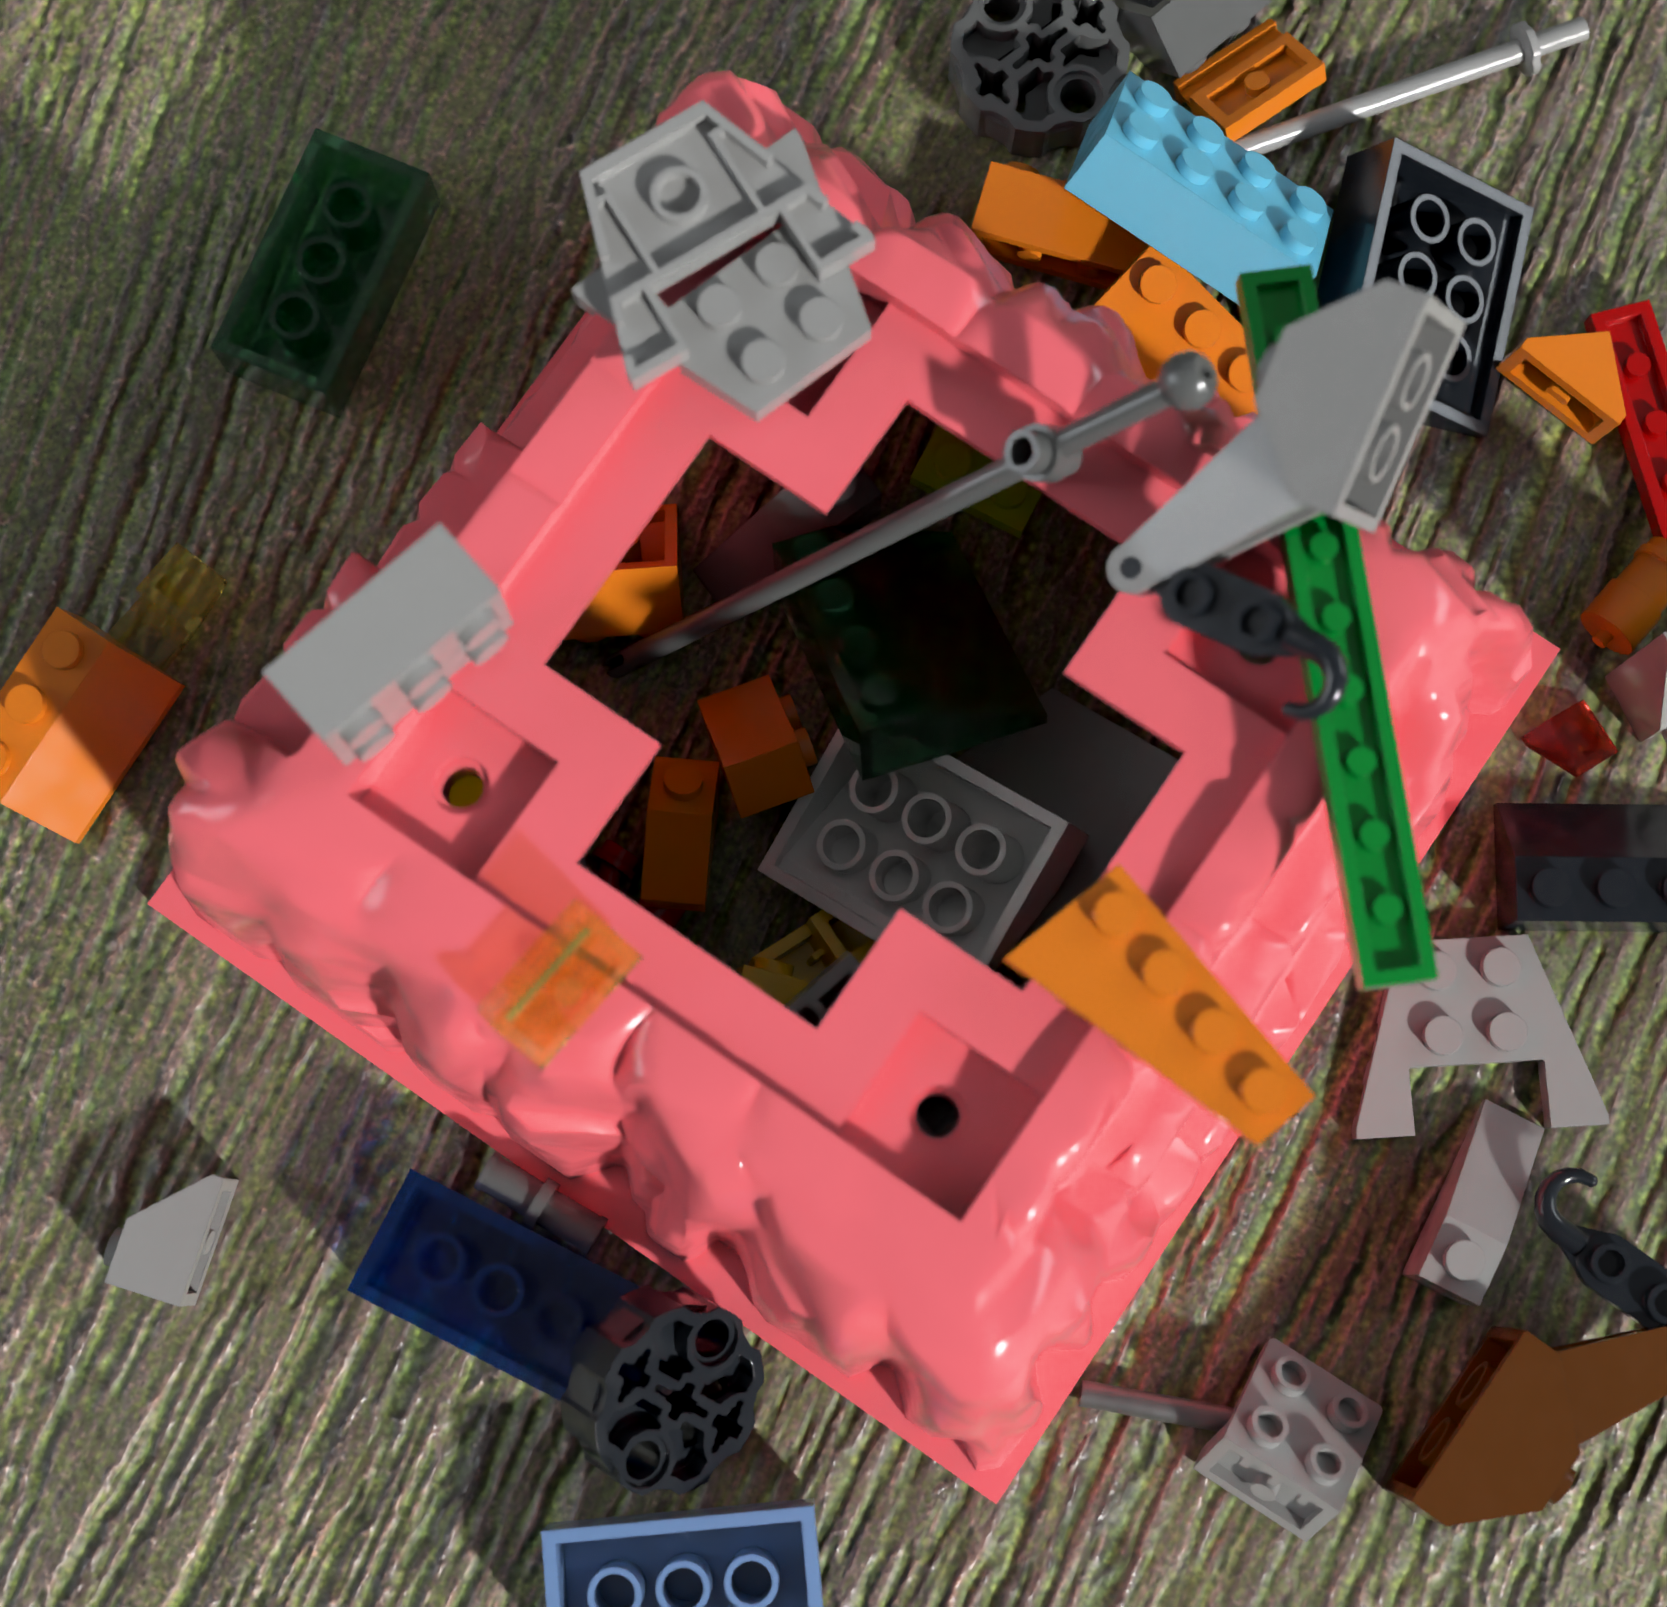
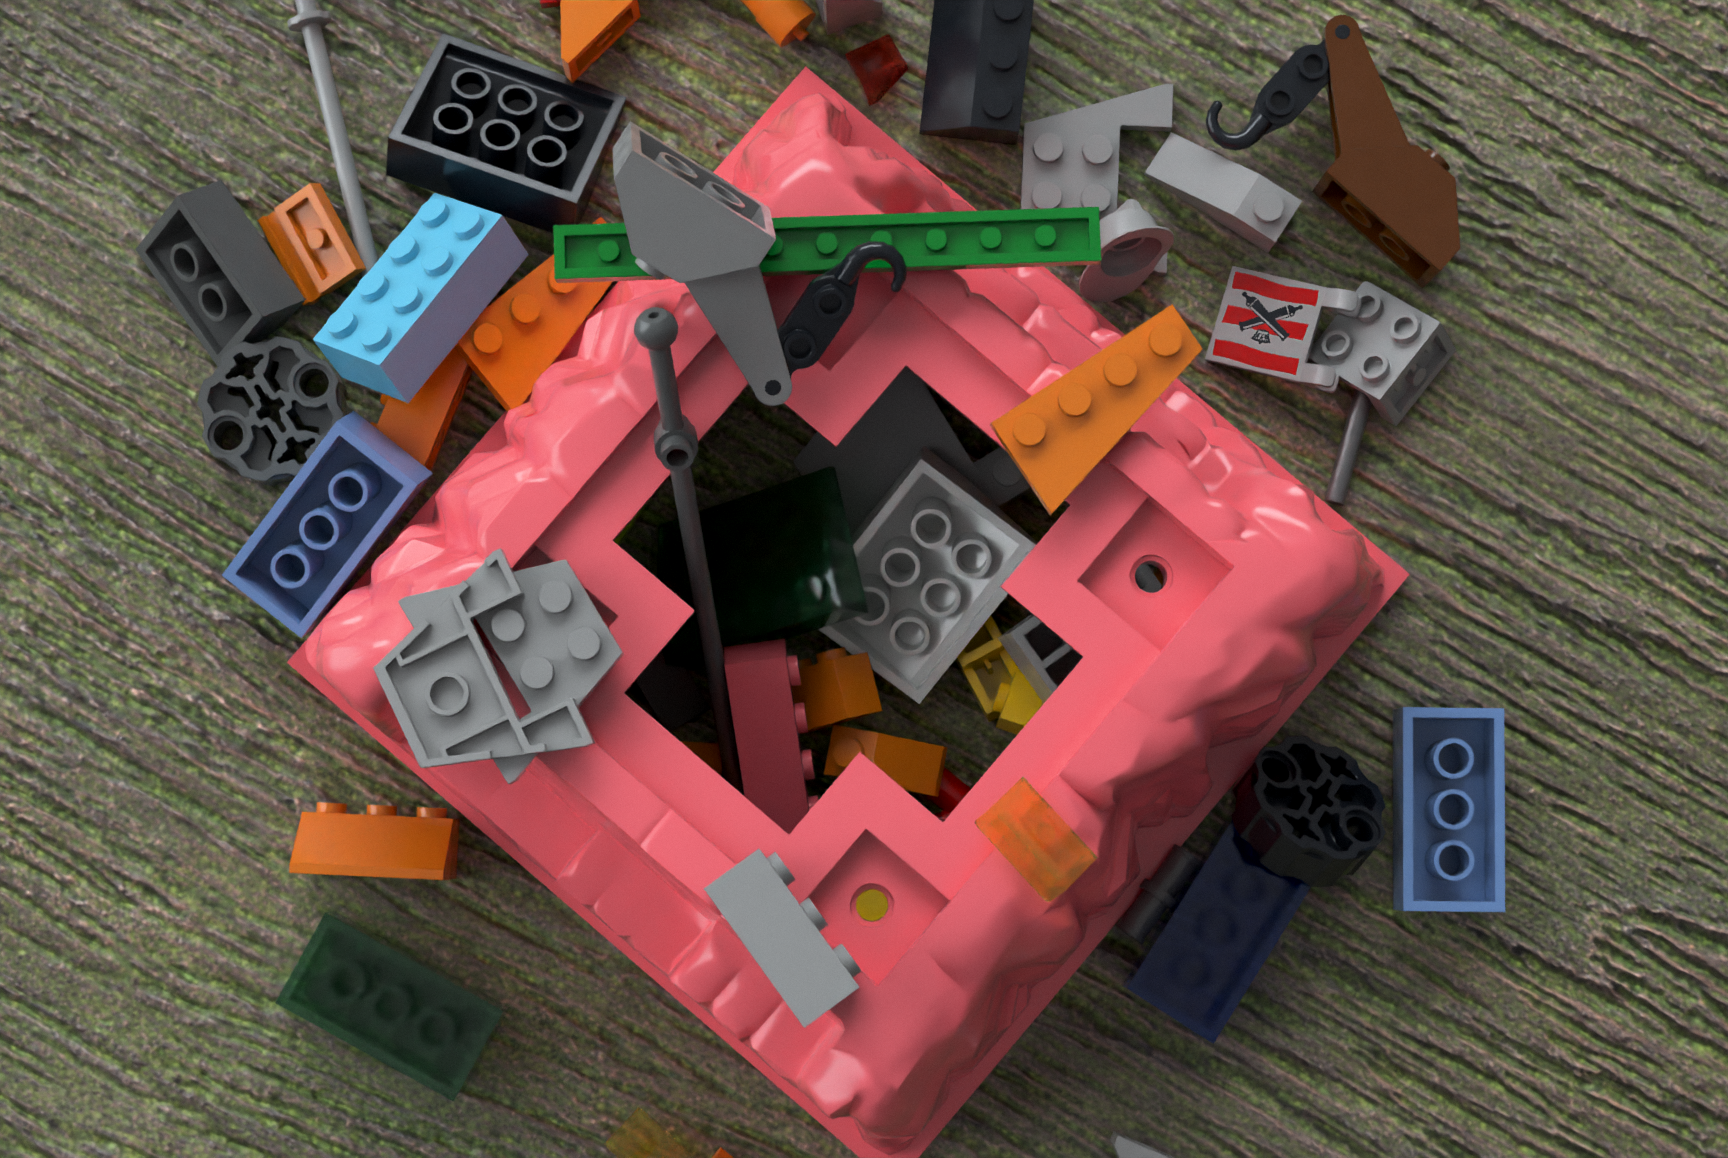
camera: 85 degrees left, 5 degrees up
(520, 231) = (376, 843): none -> orange slope
(704, 670) = (769, 730): none -> coral brick
(915, 119) = (327, 523): none -> medium blue brick
(1308, 1286) = (1271, 326): none -> flag
(1374, 1076) = (1129, 253): none -> light grey piece

